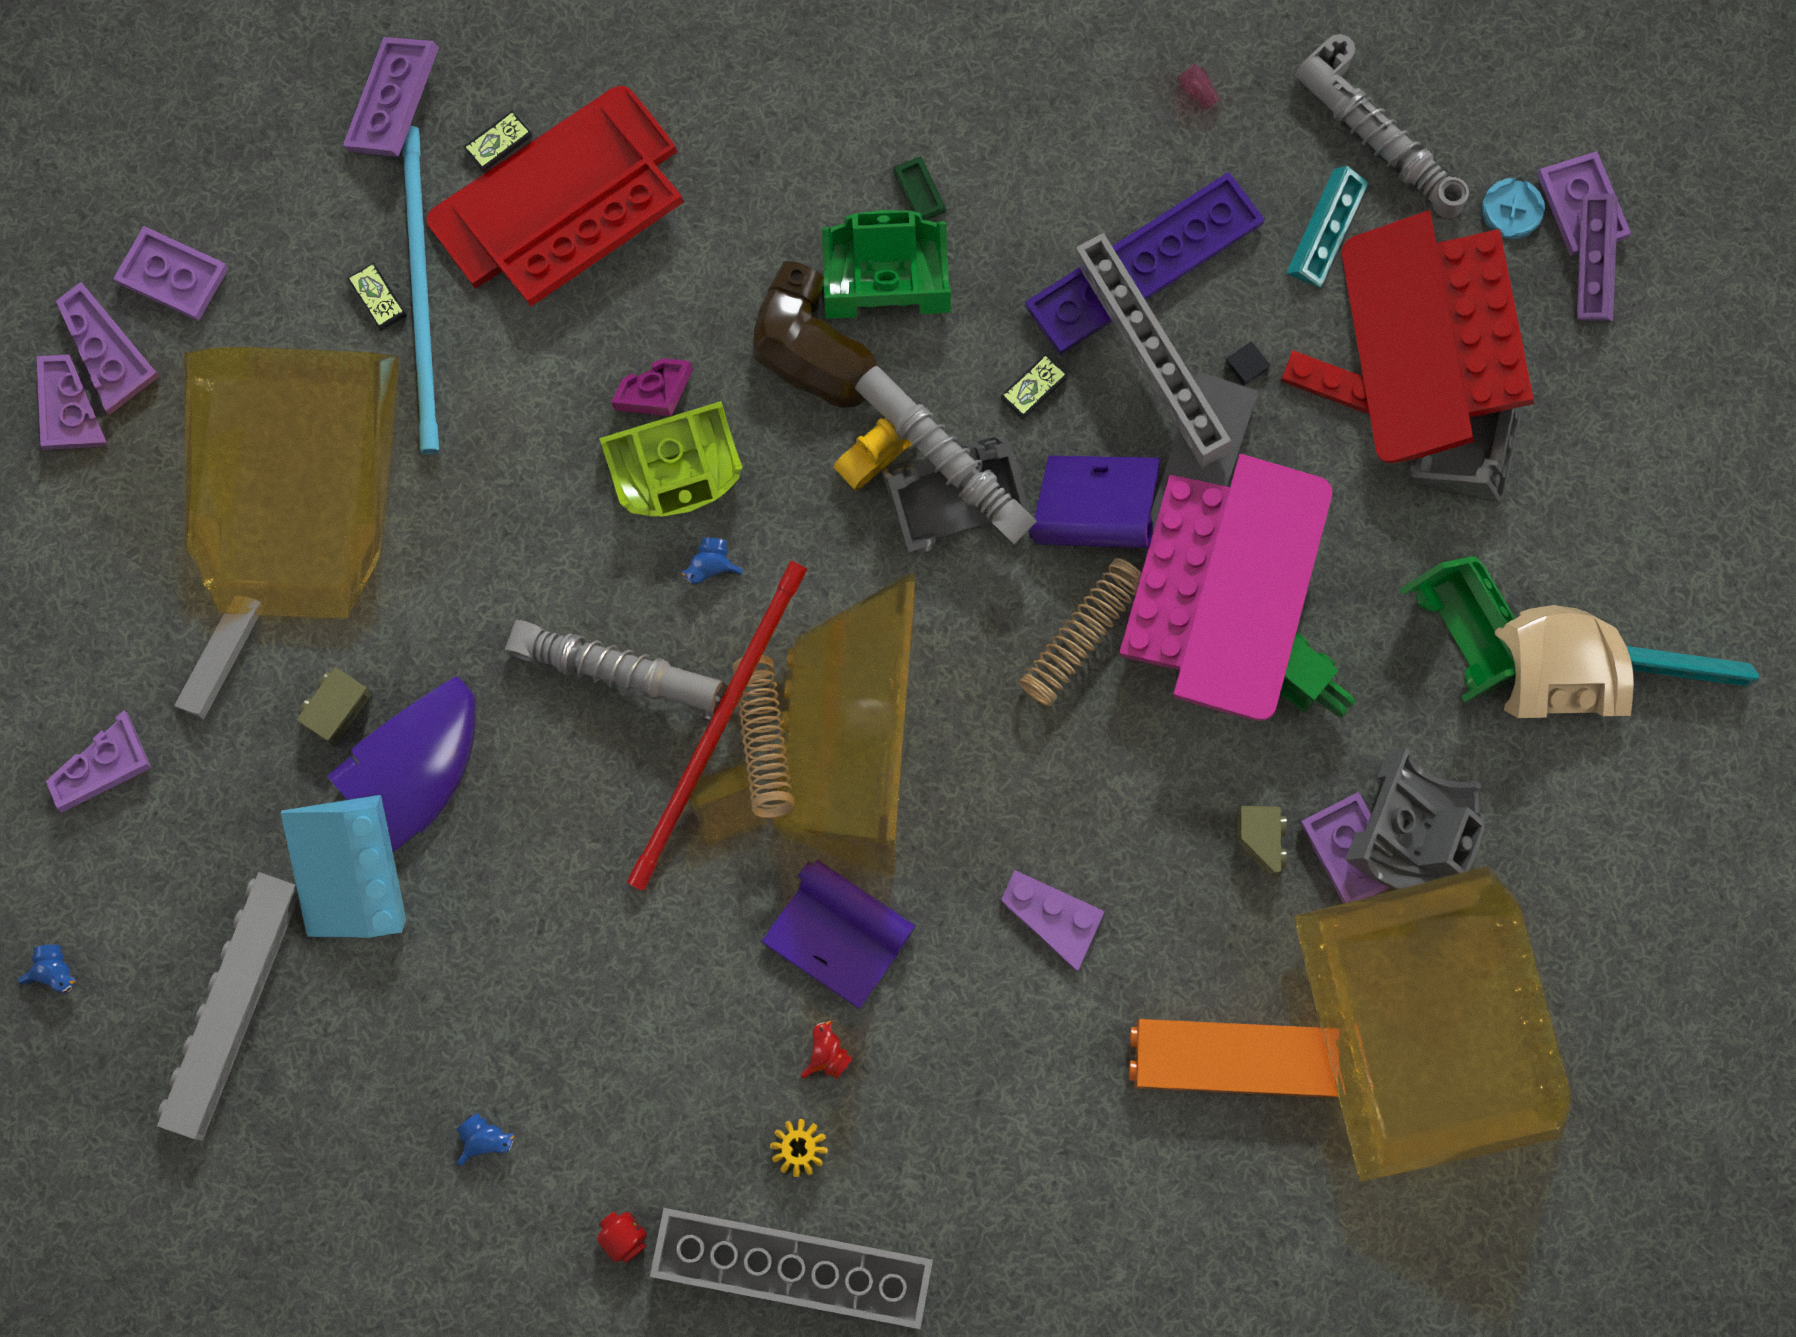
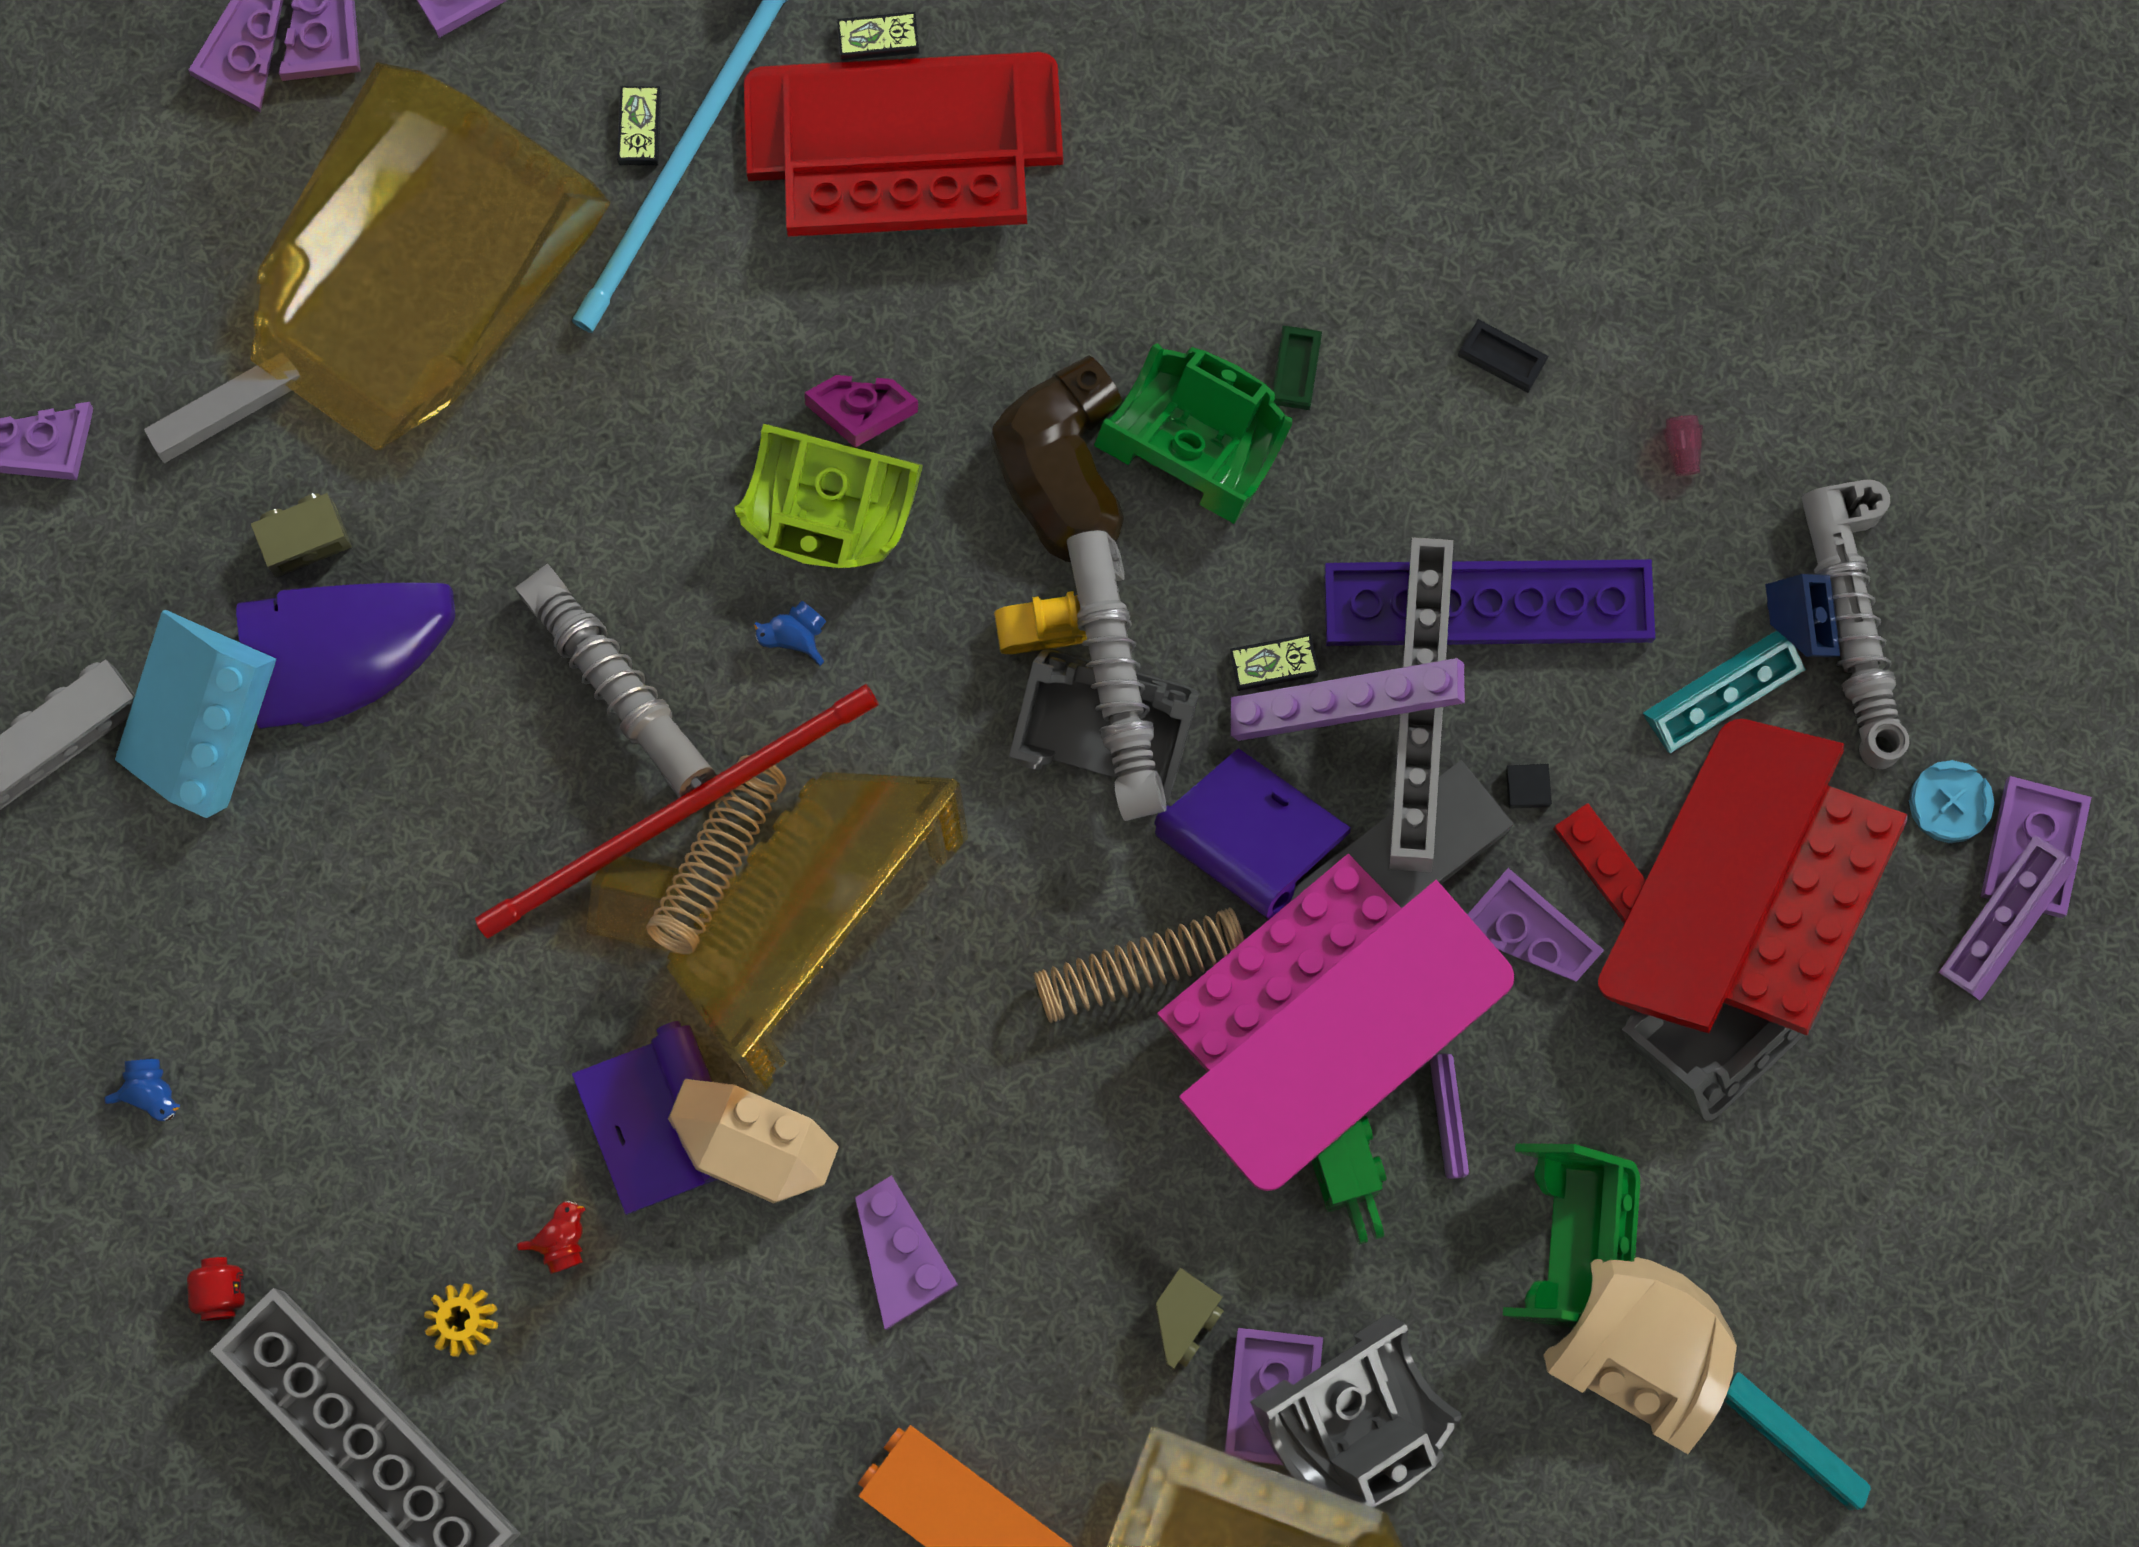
camera: 35 degrees right, 0 degrees up
(910, 905) = (751, 1140): none -> tan wedge
(1046, 101) = (1503, 356): none -> black tile
(1104, 376) = (1348, 699): none -> medium lavender plate
(1315, 449) = (1532, 929): none -> medium lavender wing
(1342, 604) = (1449, 1116): none -> medium lavender axle
(1347, 145) = (1805, 613): none -> dark blue slope

